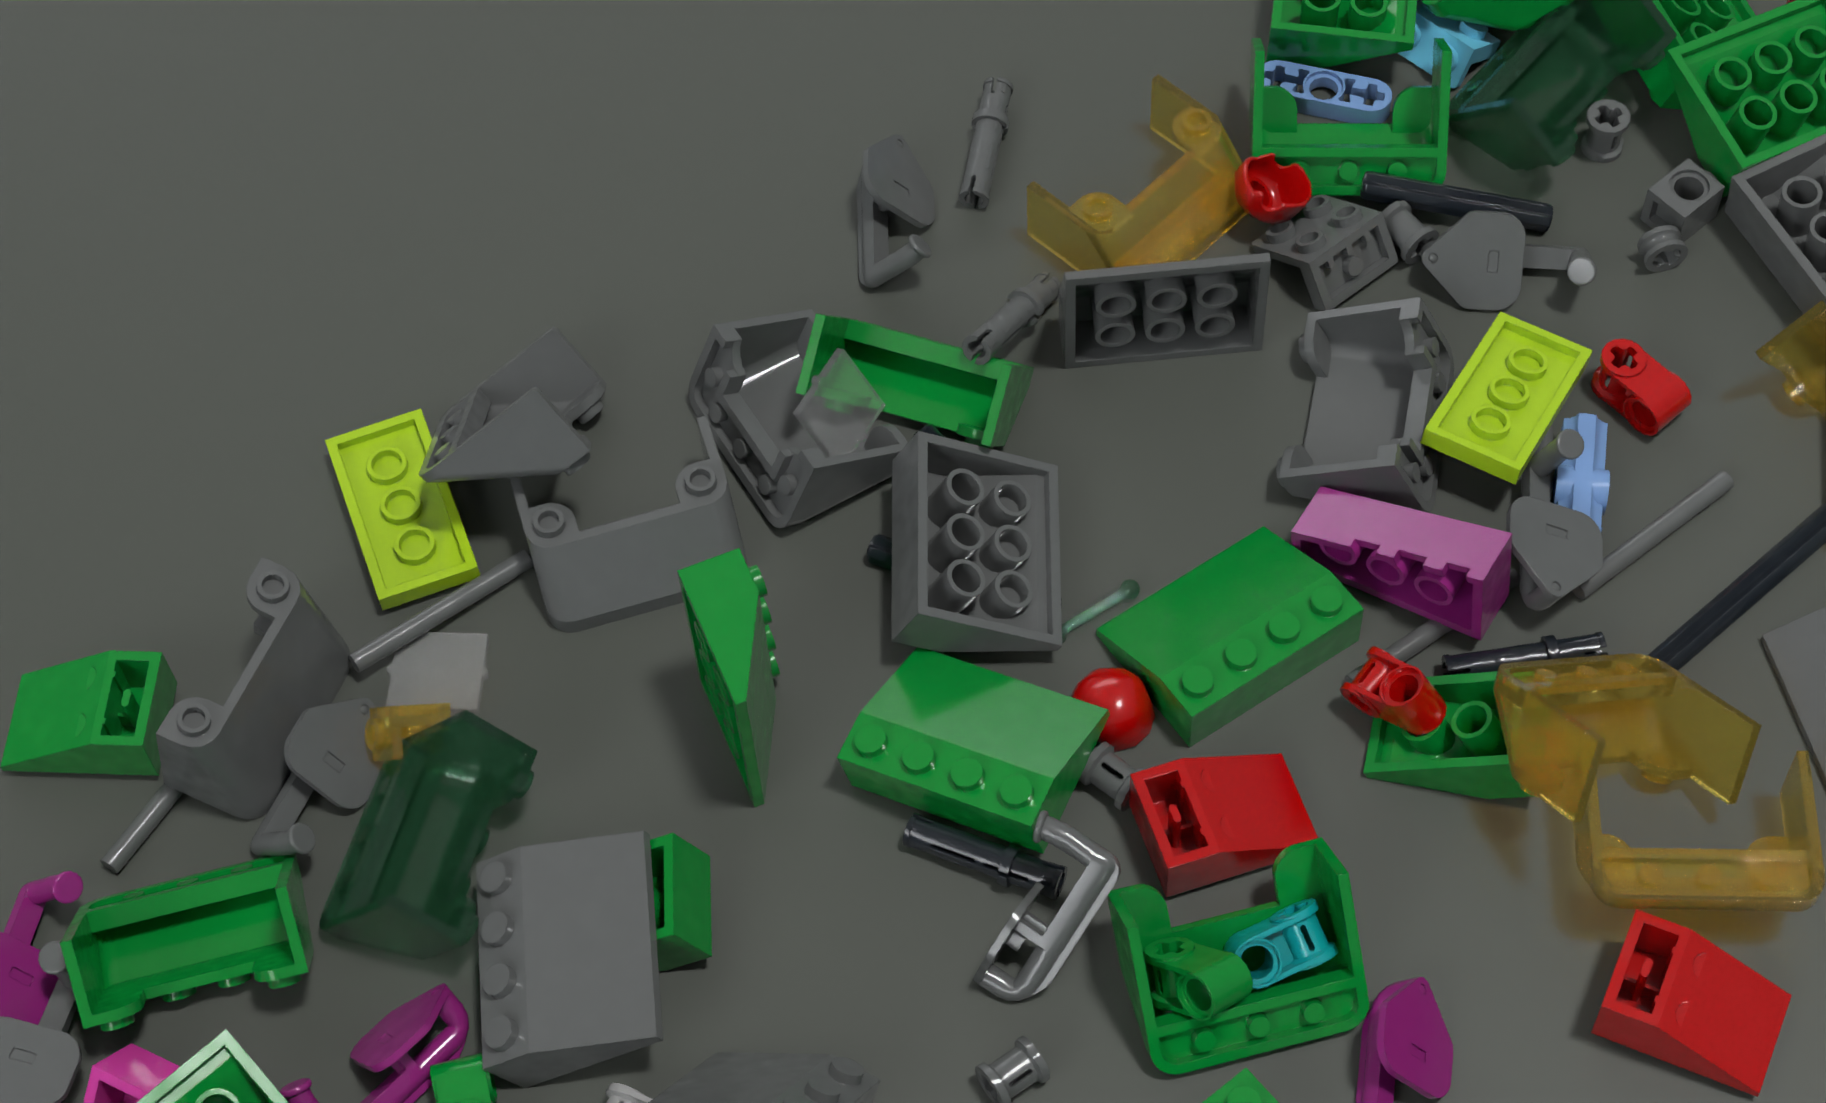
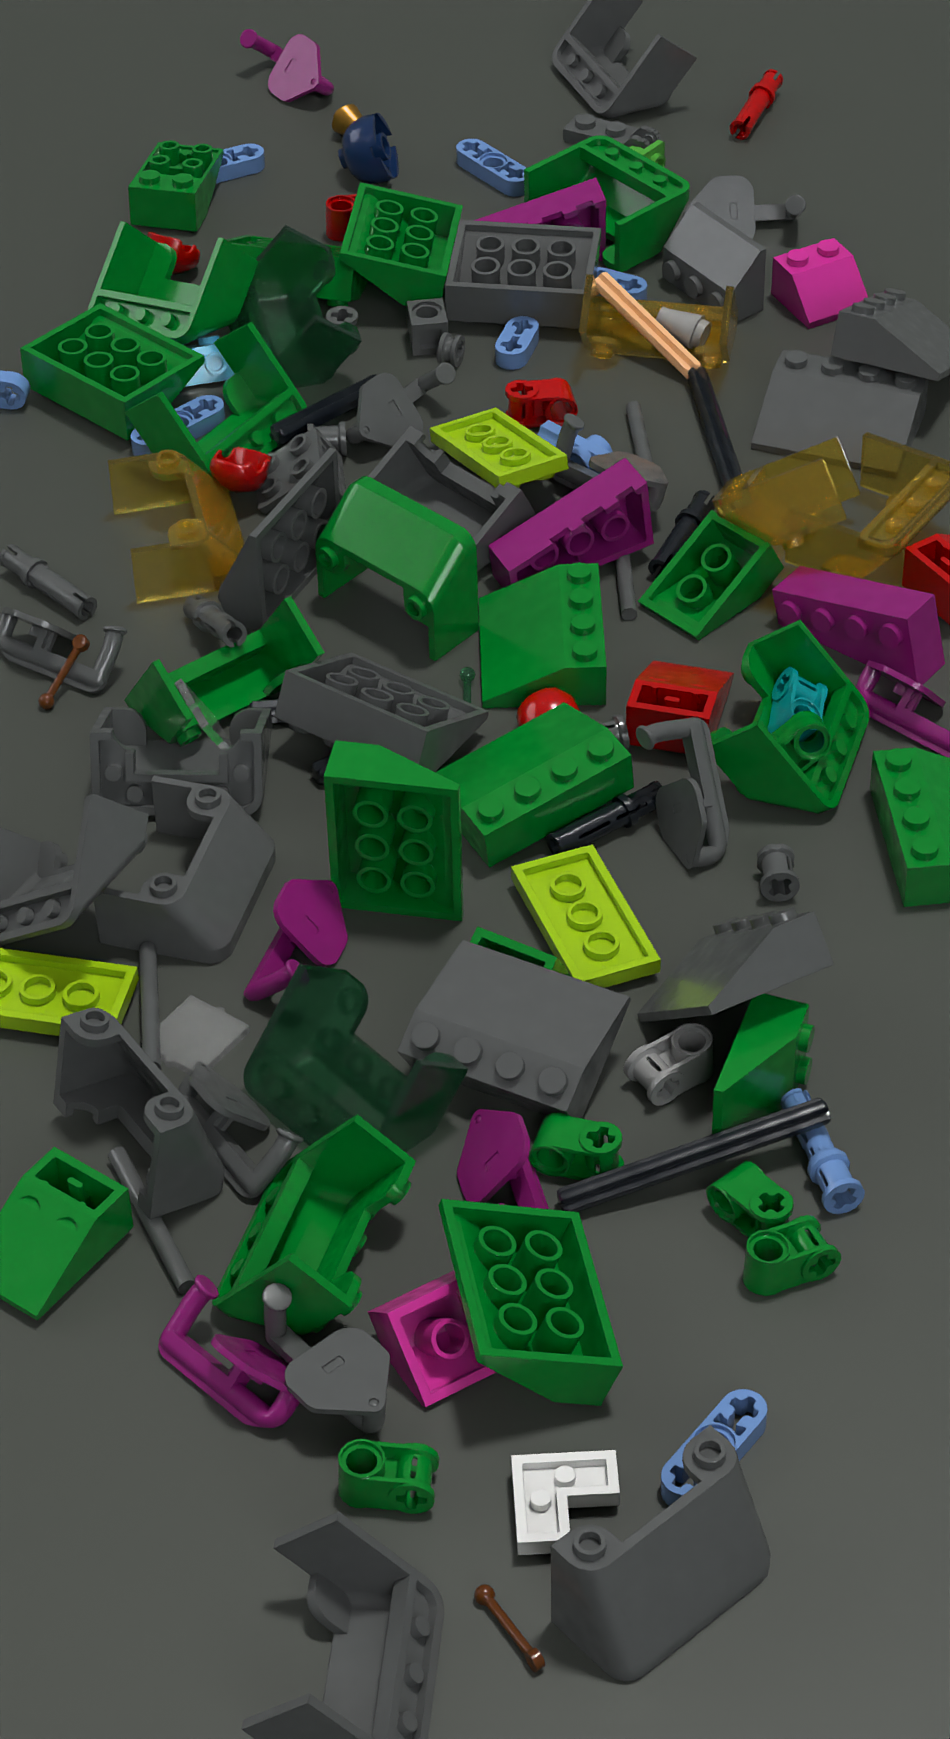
camera: 60 degrees left, 15 degrees down
(392, 723) = (238, 1058): clear yellow bracket -> none
(625, 673) = (307, 917): none -> magenta piece
(813, 922) = (585, 917): none -> lime plate
(890, 230) = (81, 645): none -> reddish brown hinge
(1192, 433) = (409, 547): none -> green windscreen
(1395, 693) = (662, 584): red piece -> none
(1496, 932) = (865, 619): none -> magenta wedge
(1740, 298) = (517, 342): none -> medium blue beam

